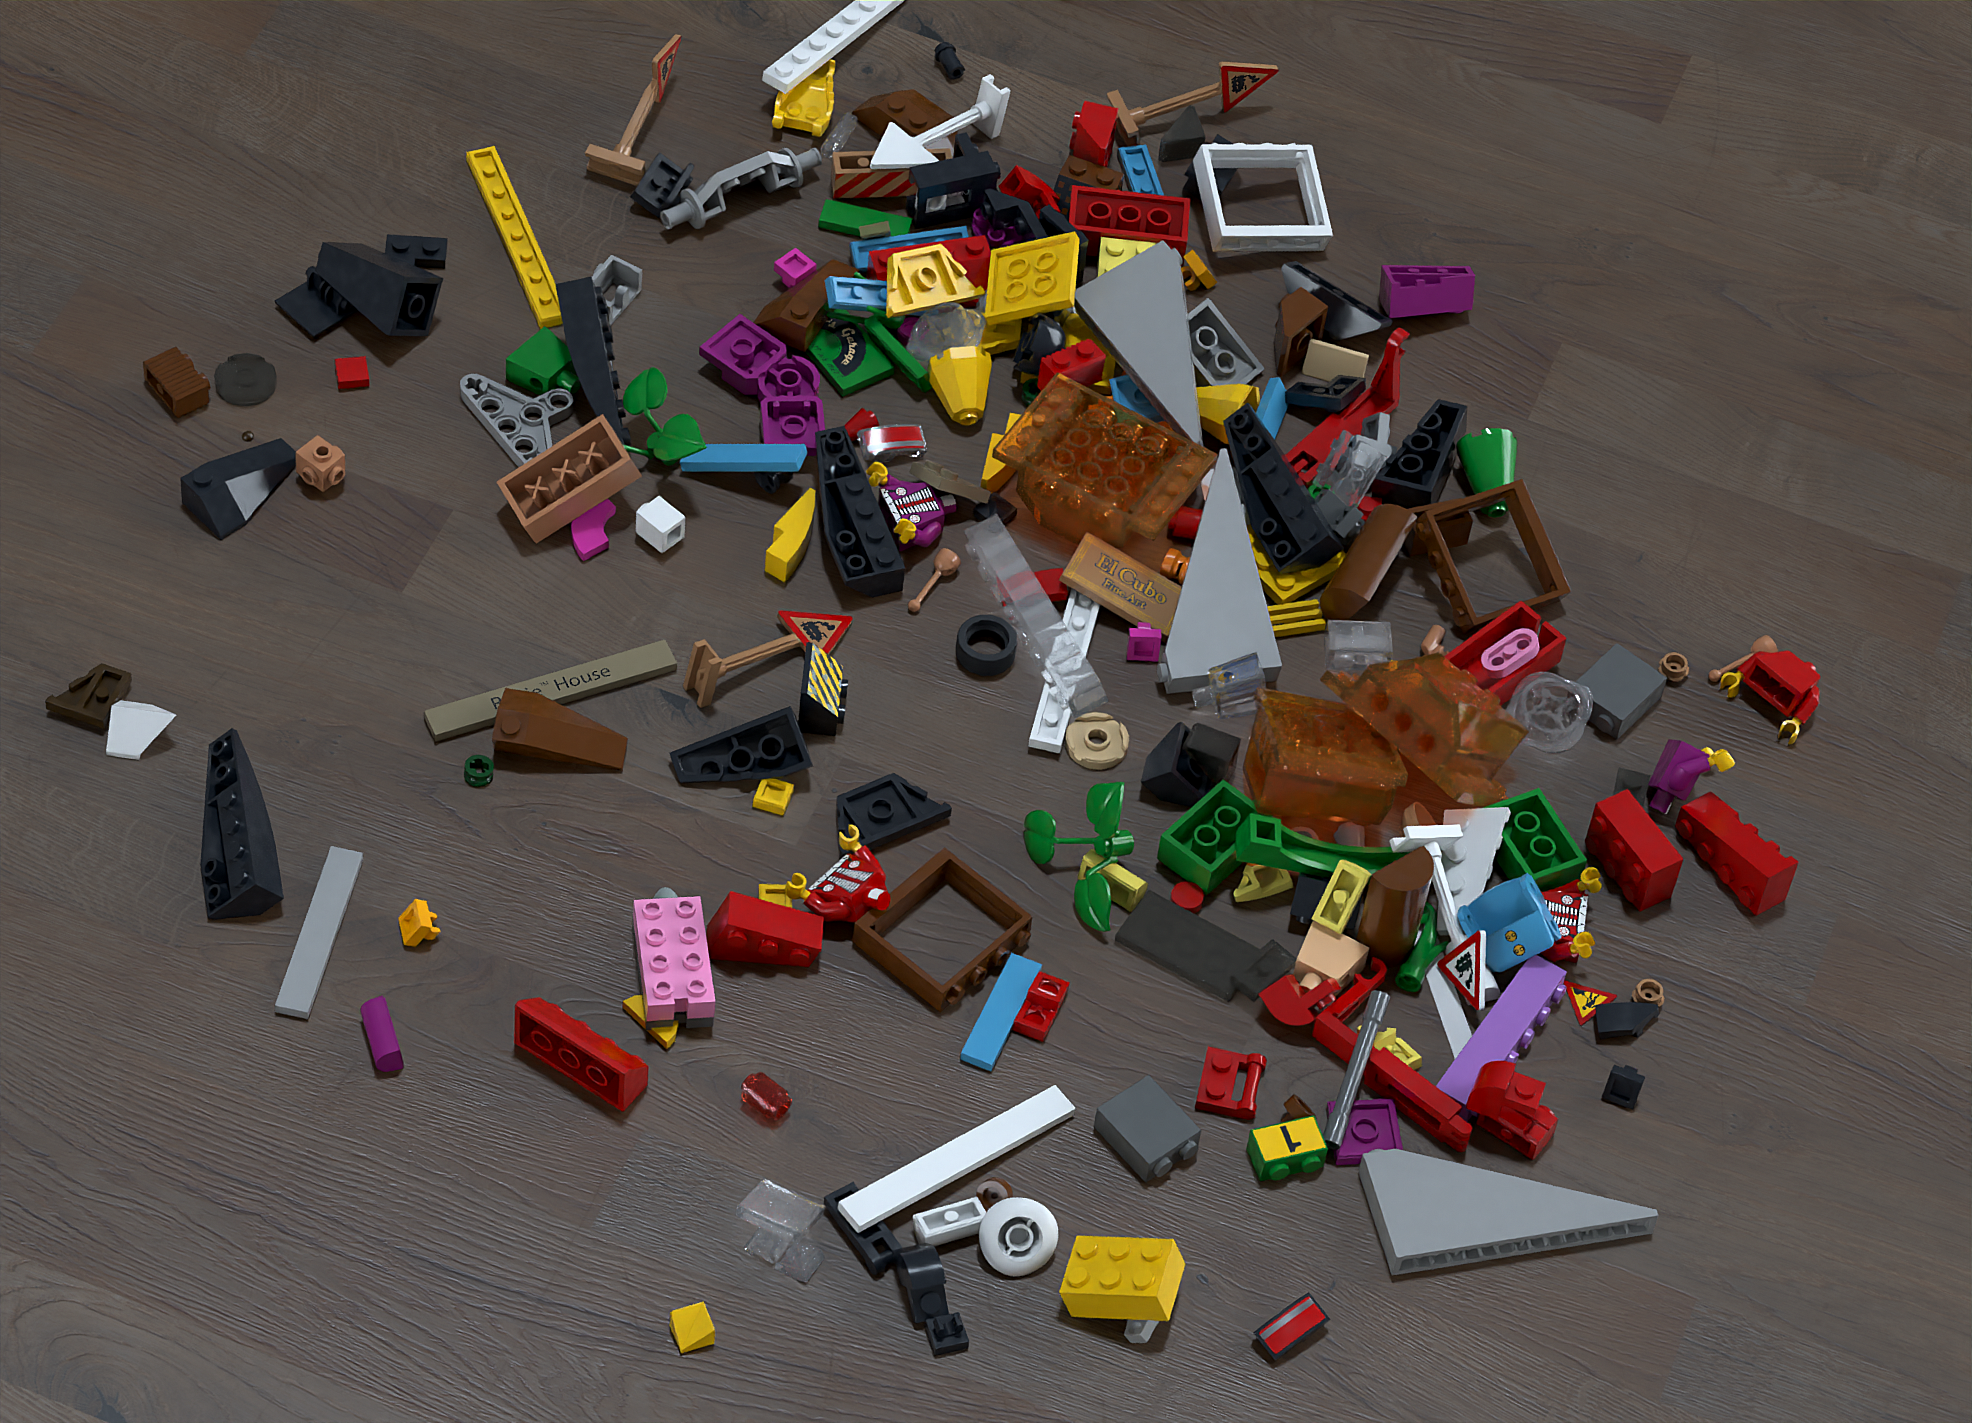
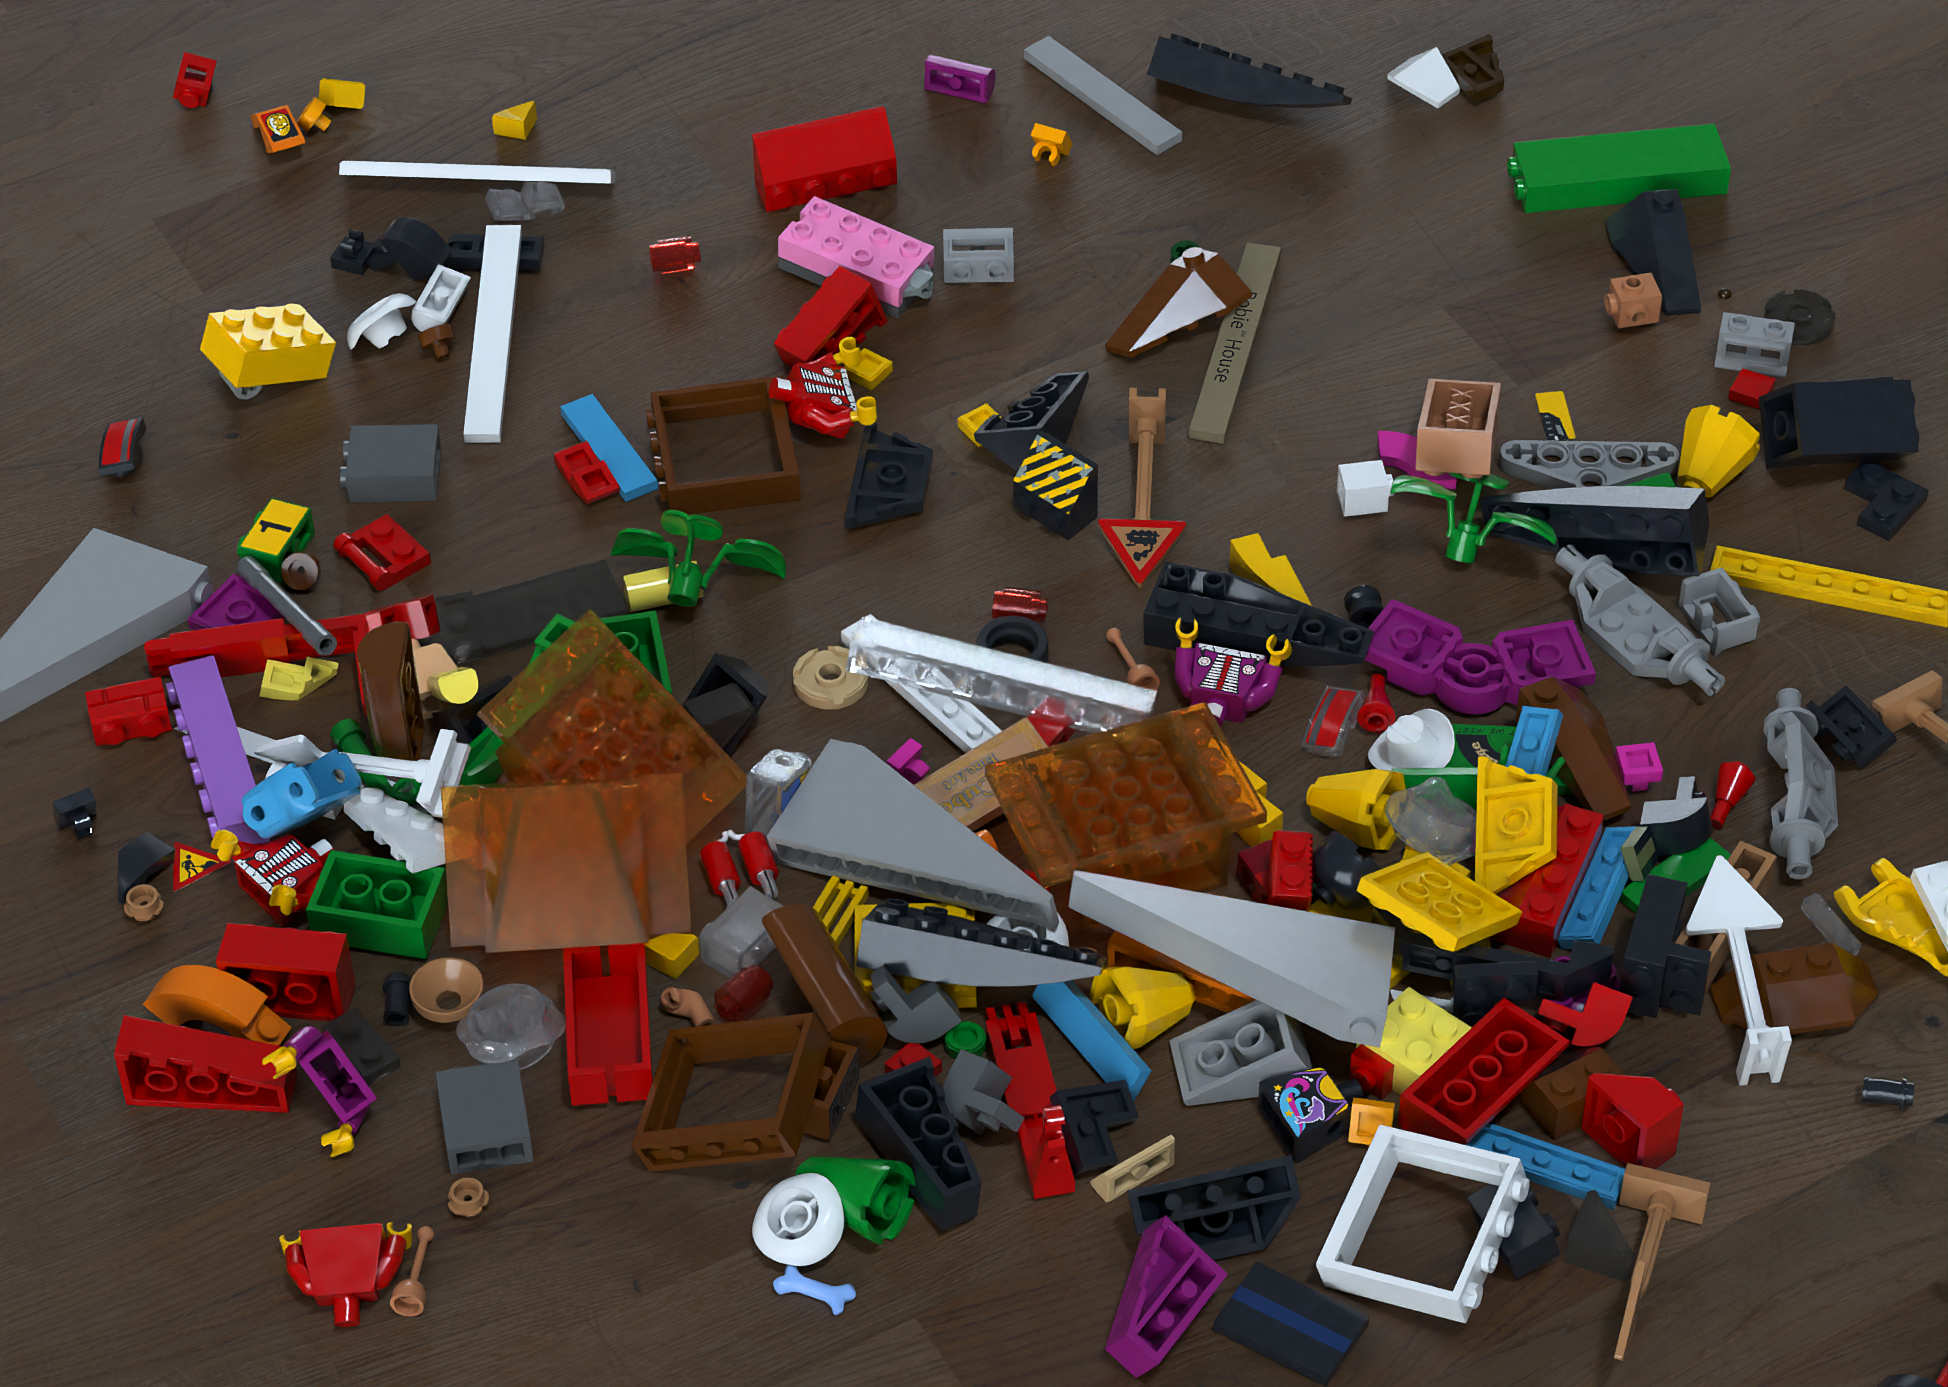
camera: 135 degrees right, 5 degrees down
(158, 545) = (1618, 167): none -> green brick
(177, 381) = (1823, 260): reddish brown brick -> none
(315, 378) = (1755, 335): none -> light grey window
(459, 348) = (1715, 449): none -> yellow cone
(469, 473) = (1555, 416): none -> yellow sticker
(607, 913) = (978, 264): none -> light grey window
(662, 321) = (1634, 625): none -> light grey plate
(746, 458) = (1394, 580): dark azure tile -> none
(765, 223) = (1732, 784): none -> red cone
(780, 1211) = (557, 203): clear tile -> none
(785, 1306) = (465, 171): none -> white tile
(828, 221) = (1679, 823): none -> black brick
(880, 388) = (1414, 742): none -> white hat
(943, 662) = (1020, 603): none -> clear red brick
(948, 481) = (1243, 715): dark tan wing -> none
(1227, 293) = (1307, 1109): none -> black torso
(1296, 673) = (757, 860): none -> red piece
(1299, 321) = (1200, 1126): reddish brown slope -> none
(1356, 473) = (945, 1038): clear plate -> none
(1364, 244) = (1291, 1323): none -> black tile
(1404, 618) = (743, 993): none -> clear red brick
(1501, 1086) = (144, 661): red brick -> none
(1508, 655) = (589, 1001): bright pink plate -> none
(1542, 483) = (799, 1220): none -> white hat
(1555, 457) = (833, 1295): none -> light blue piece
(1555, 759) = (445, 979): none -> medium nougat piece
(1573, 803) = (397, 998): none -> black pin
(1697, 884) = (217, 998): none -> orange arch

